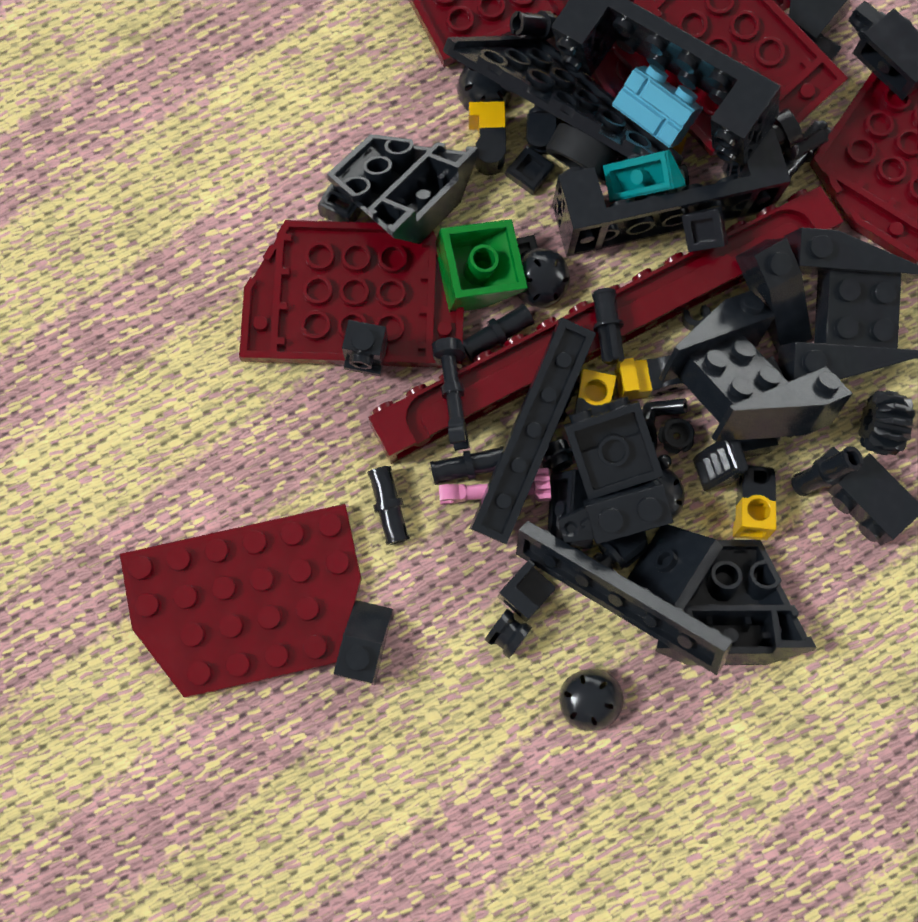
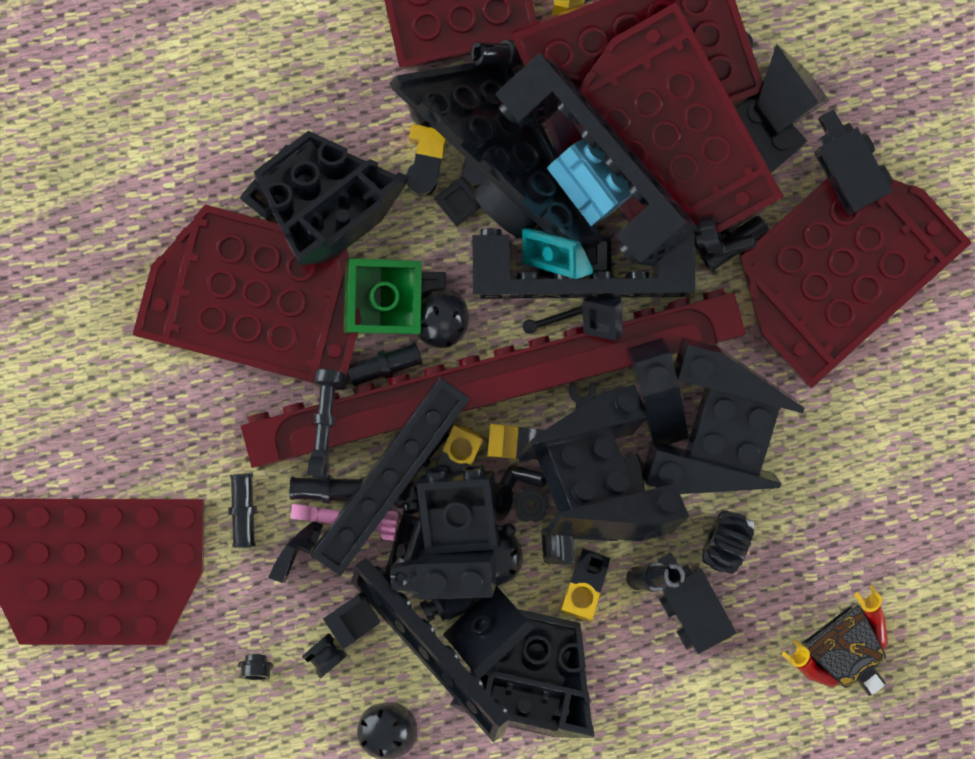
camera: 15 degrees right, 10 degrees up
(363, 642) = (191, 633): black slope -> none
(364, 347) = (251, 359): black brick -> none
(438, 664) = (255, 667): none -> black plate
(457, 523) = (303, 541): none -> black slope
(608, 326) = (486, 392): black axle -> none
(628, 268) = (531, 326): none -> black hinge

